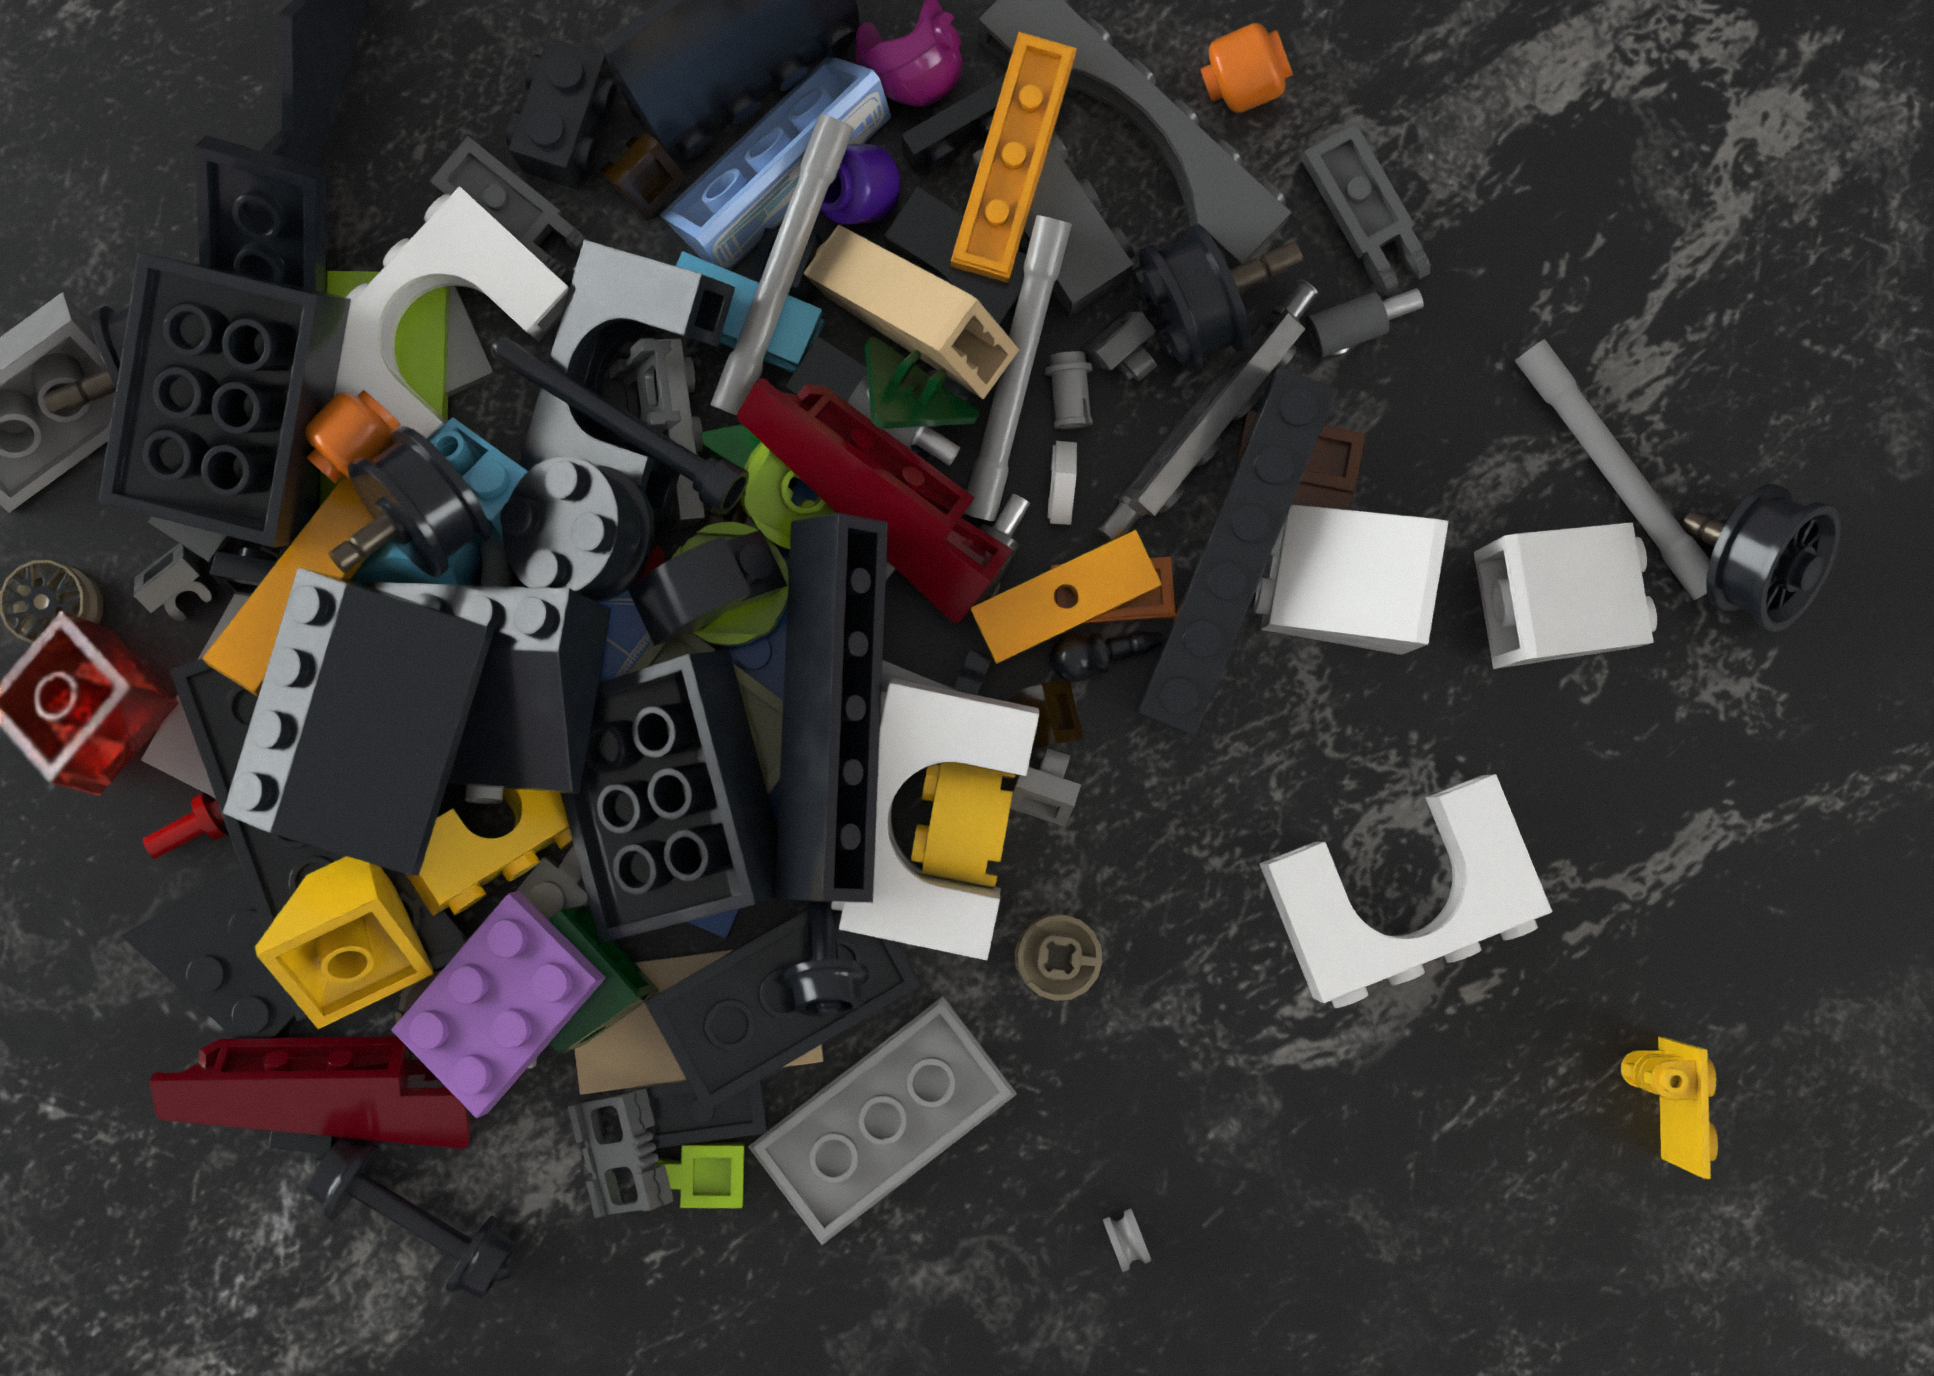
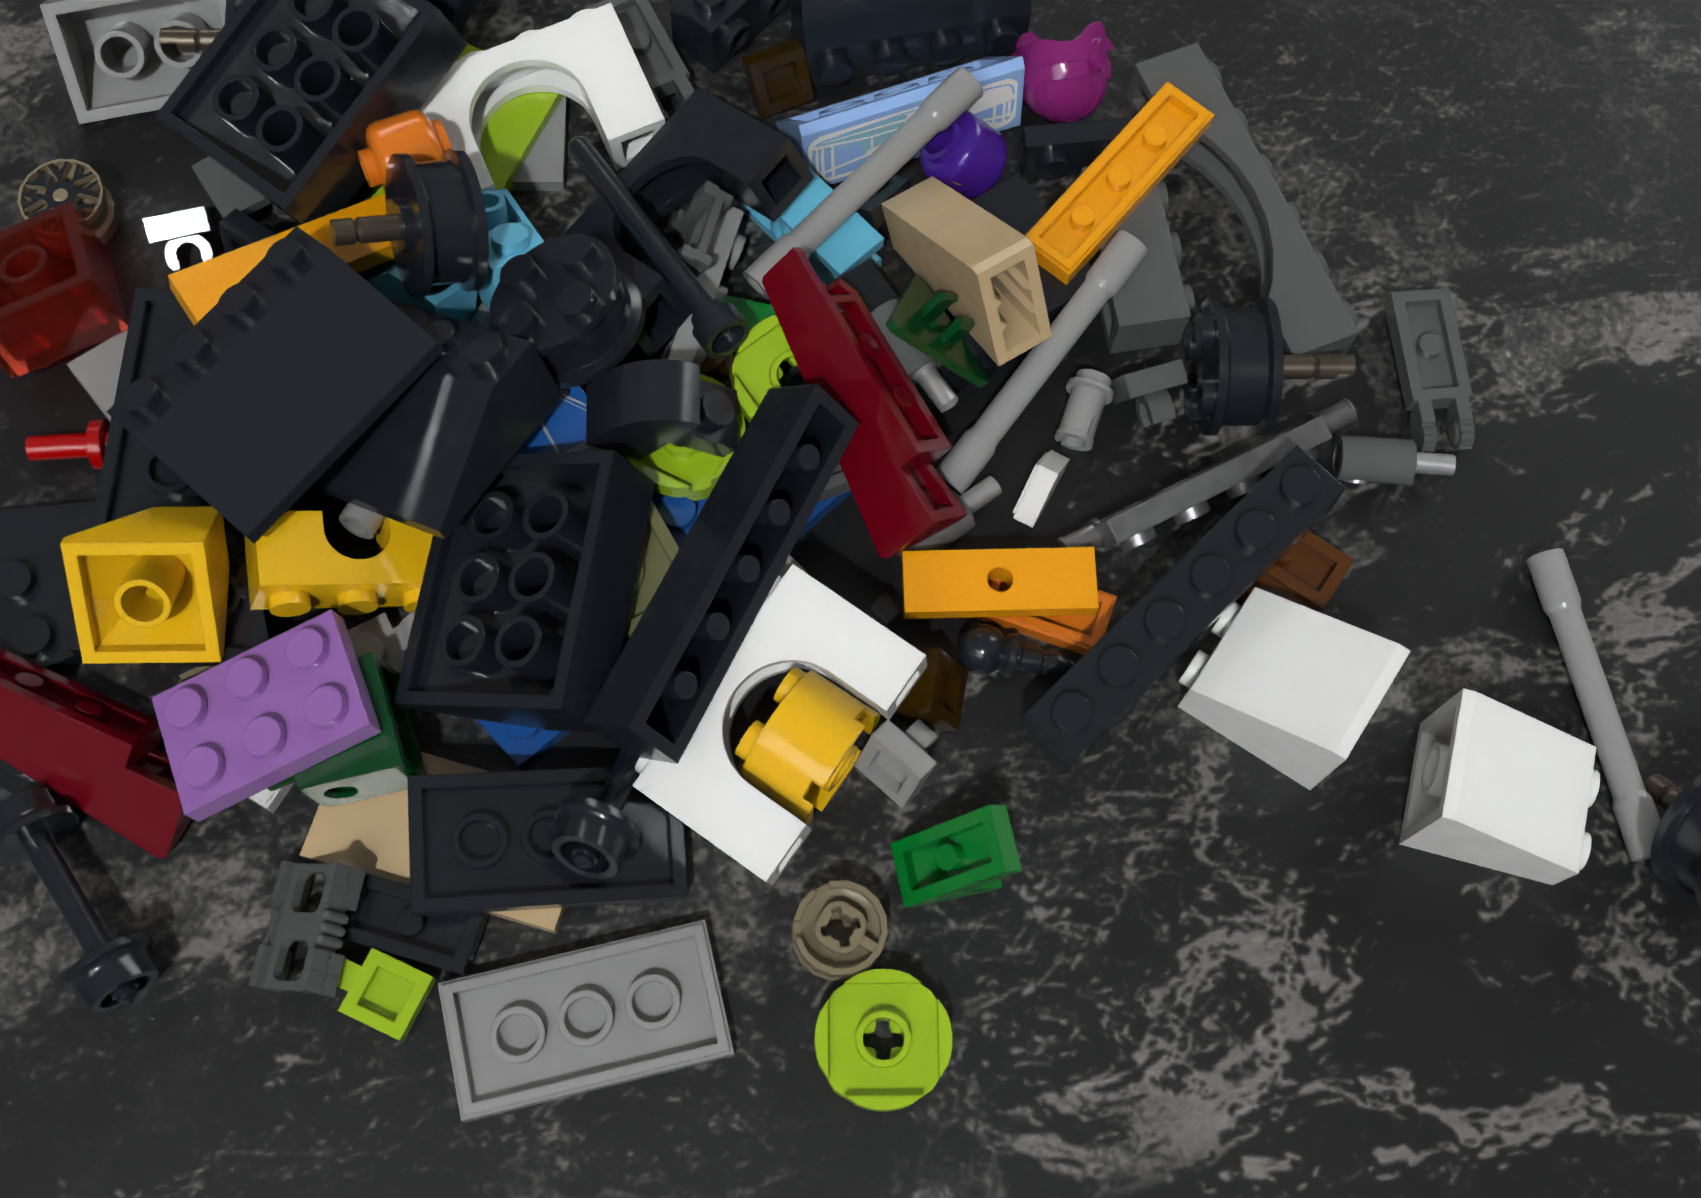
camera: 25 degrees right, 15 degrees down
(1129, 855) = (956, 857): none -> green slope
(1165, 1042) = (911, 1012): none -> lime plate
(1246, 68) = (1364, 205): orange head -> none
(1489, 895) = (1316, 1063): white arch -> none

